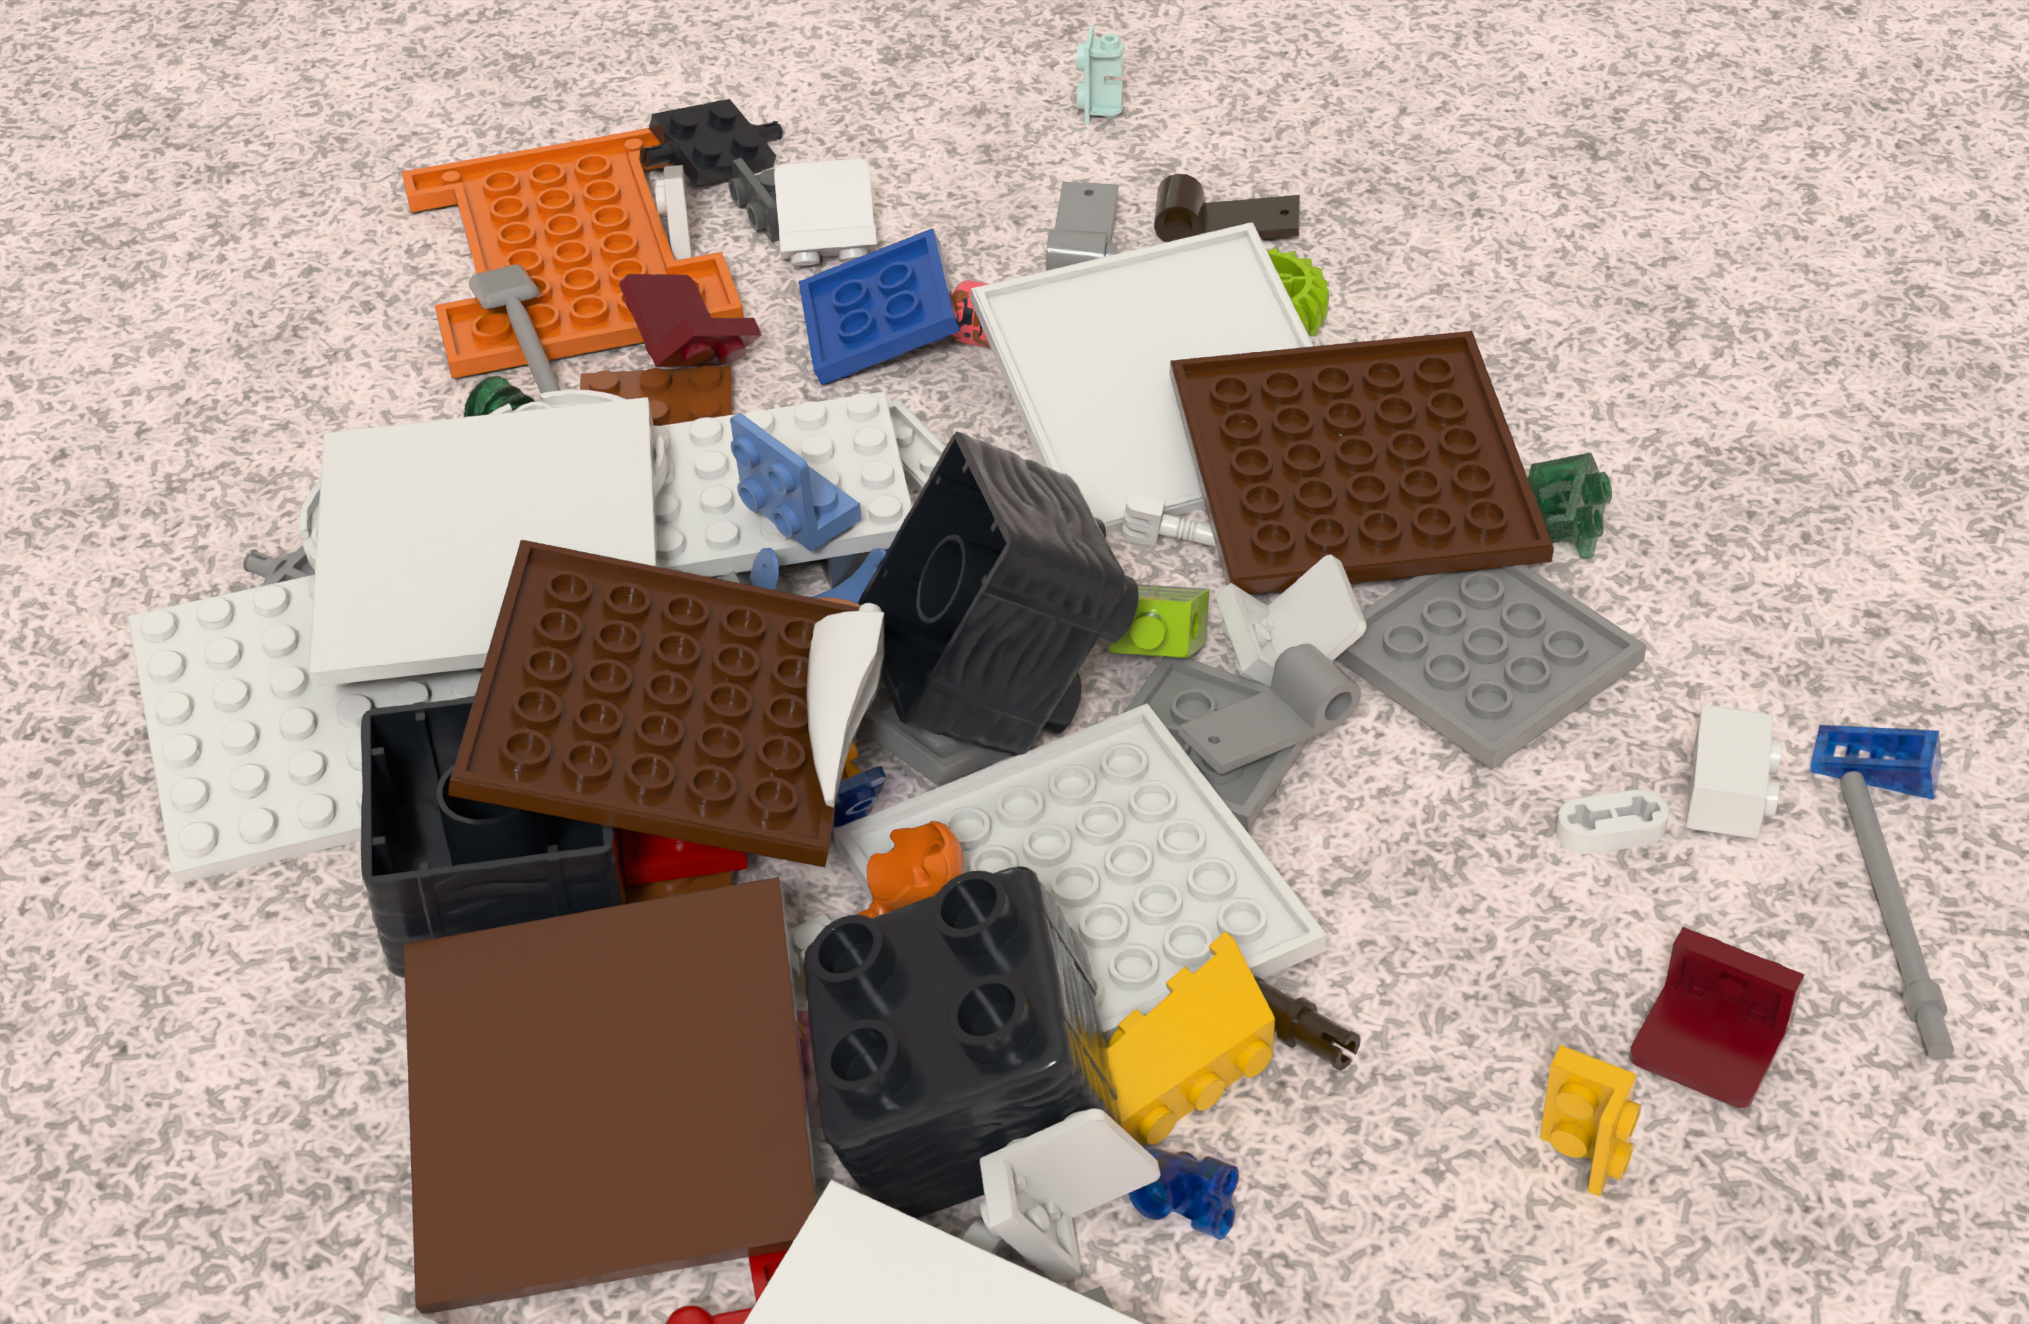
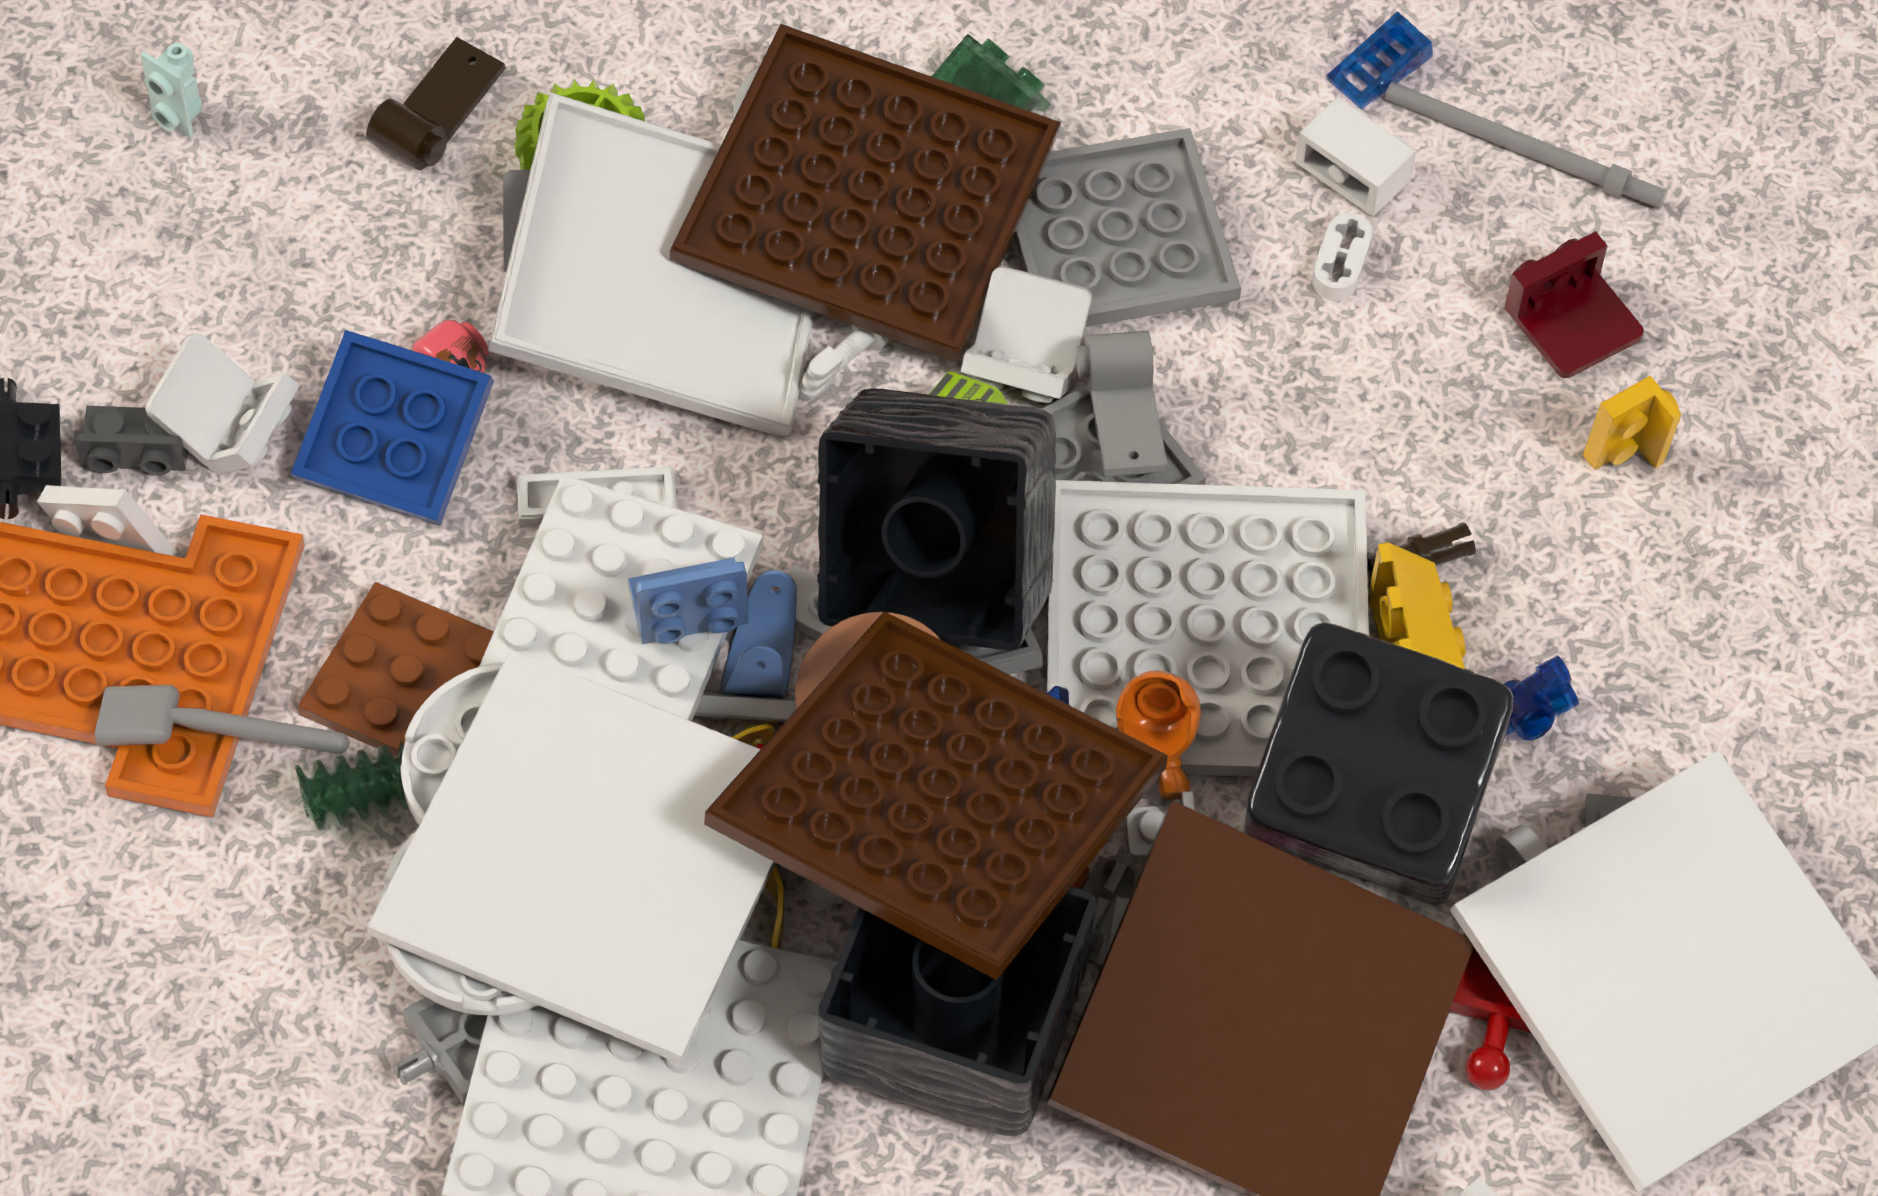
camera: 65 degrees left, 15 degrees up
(679, 325) = (339, 601): dark red bracket -> none
(841, 685) = (991, 655): white piece -> none
(1056, 1175) = (1528, 806): white bracket -> none
(1082, 224) = (376, 224): light grey door -> none

